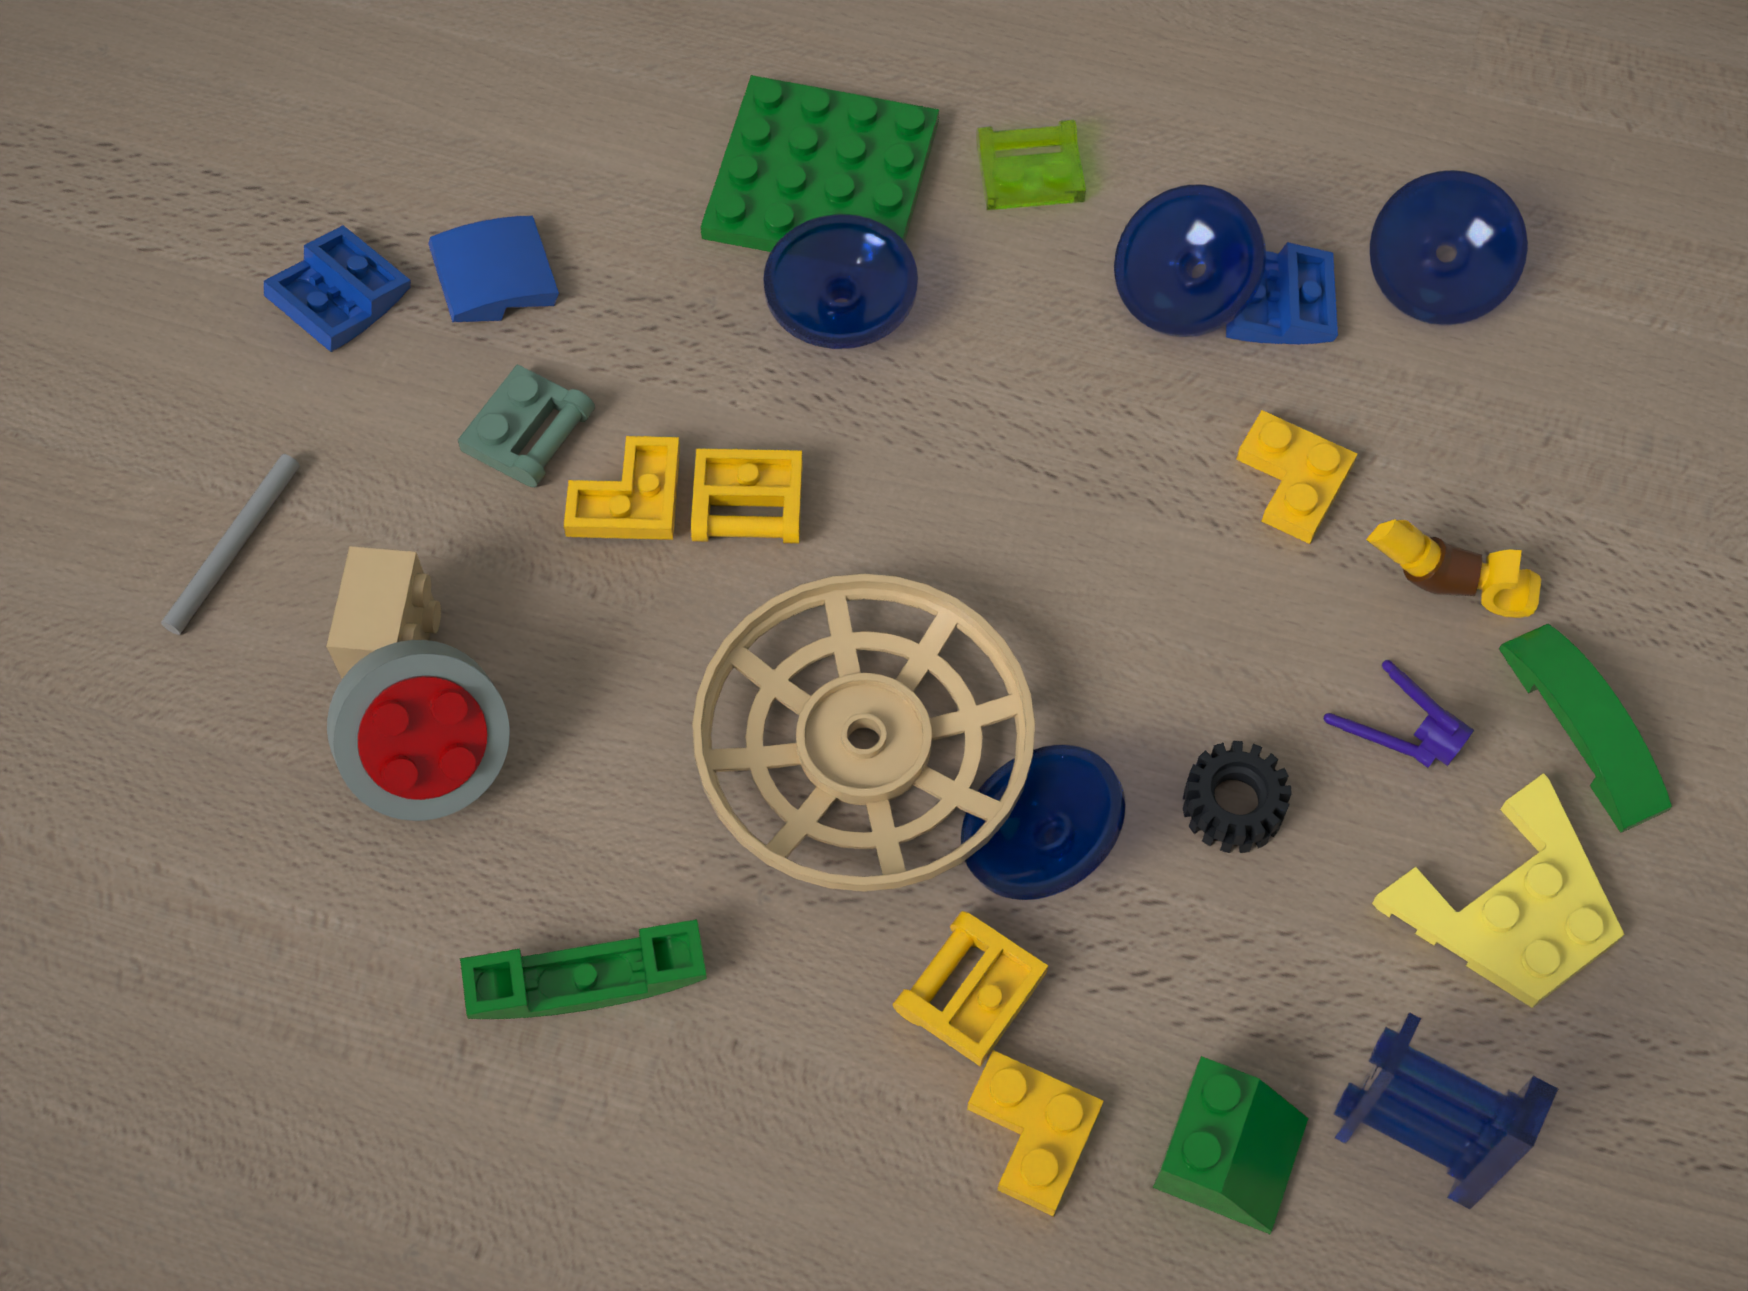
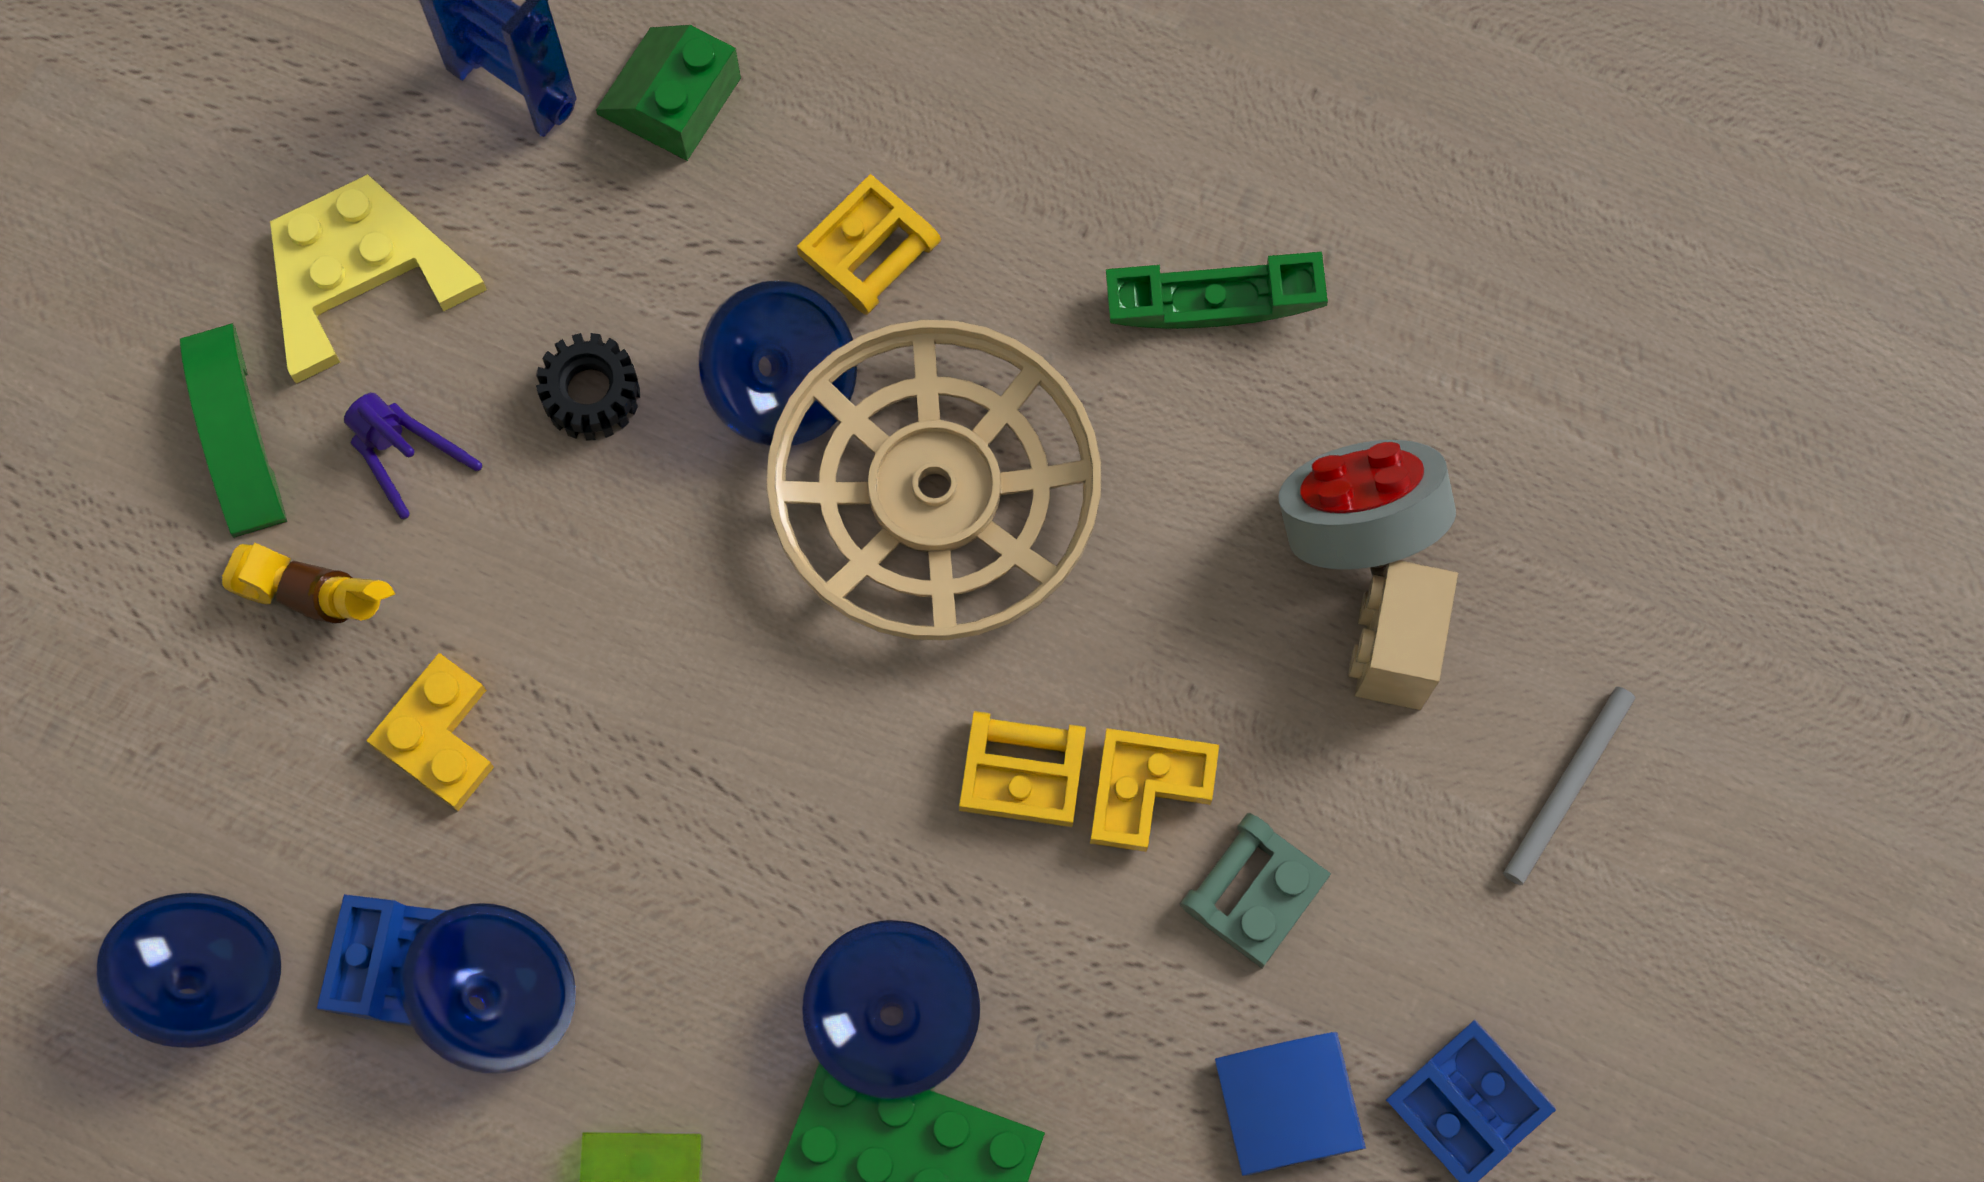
camera: 175 degrees left, 10 degrees up
(1051, 1122) = (819, 129): yellow plate -> none

